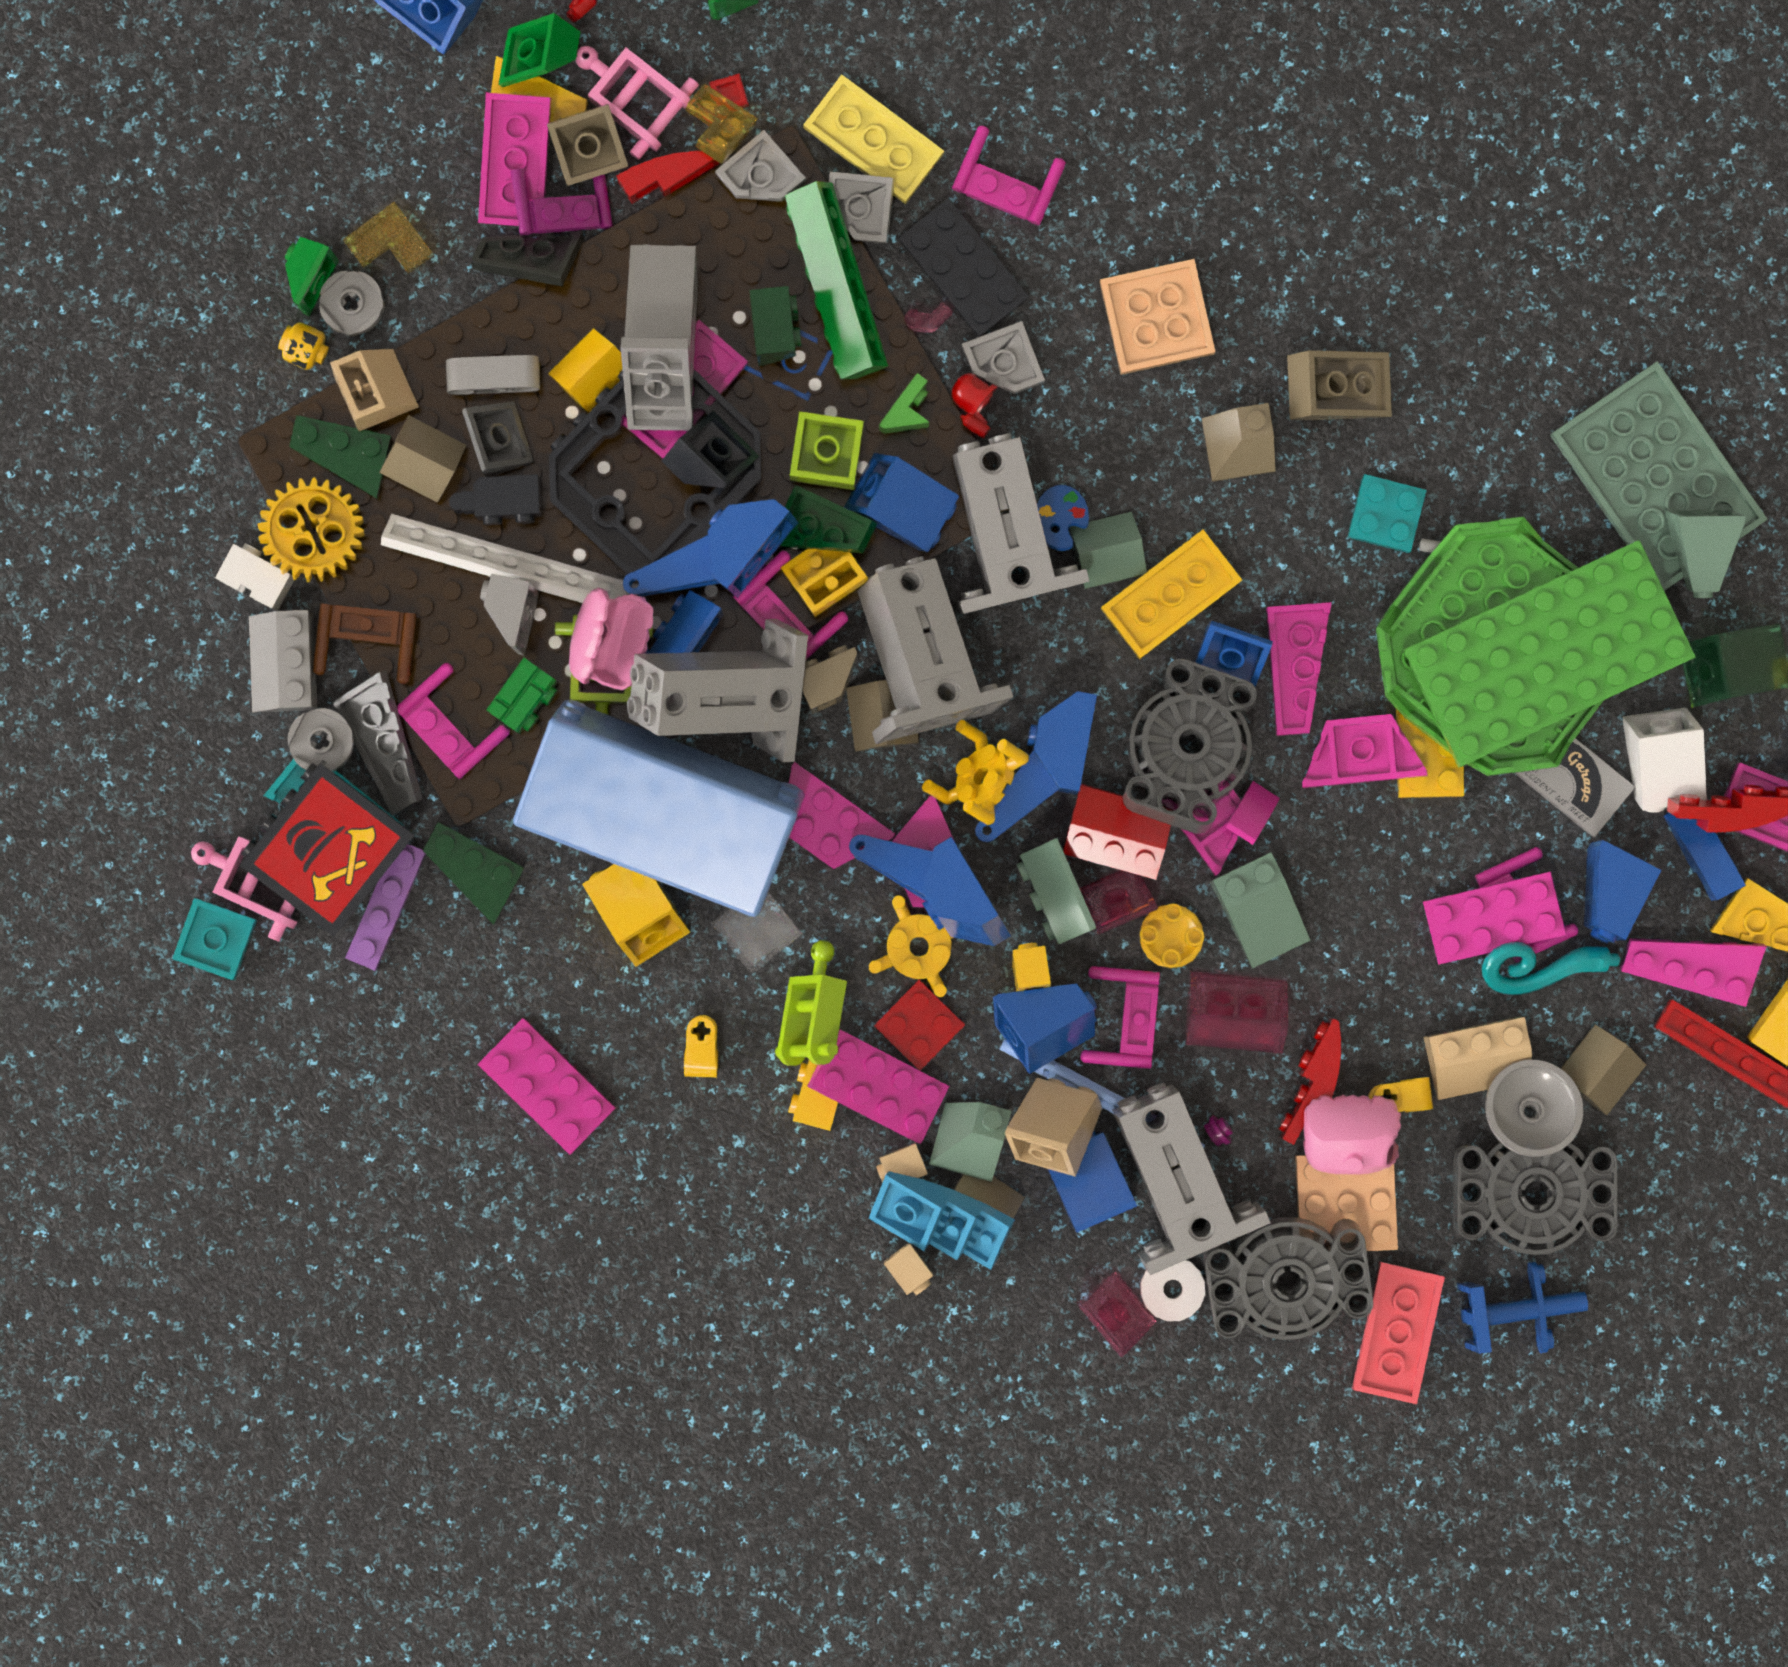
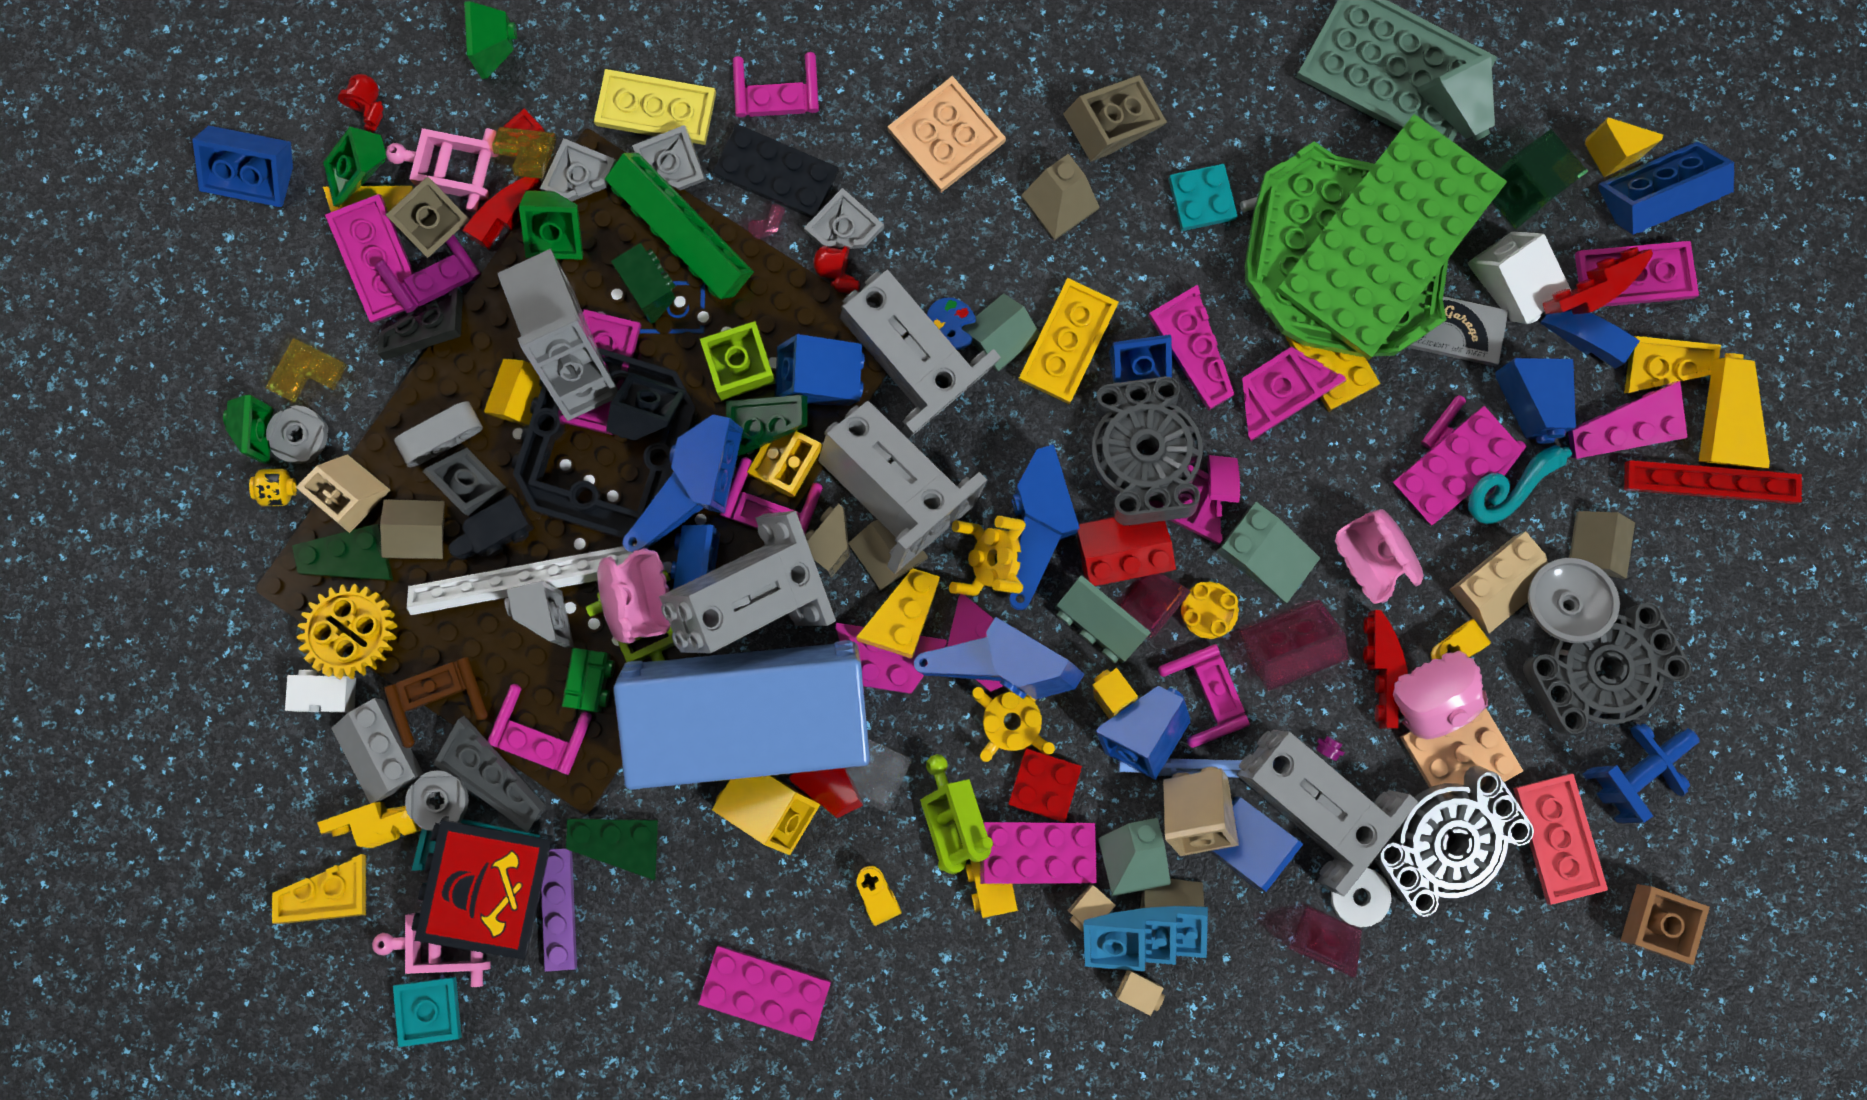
camera: 25 degrees left, 5 degrees down
(169, 778) = (328, 895): none -> yellow wing
(246, 732) = (371, 824): none -> yellow plate
(706, 215) = (550, 223): none -> green slope
(707, 921) = (830, 789): none -> red slope
(864, 787) = (903, 615): none -> yellow wing
(901, 415) = (786, 305): bright green slope -> none
(1365, 966) = (1377, 554): none -> bright pink animal
(1453, 1463) = (1665, 924): none -> medium nougat brick

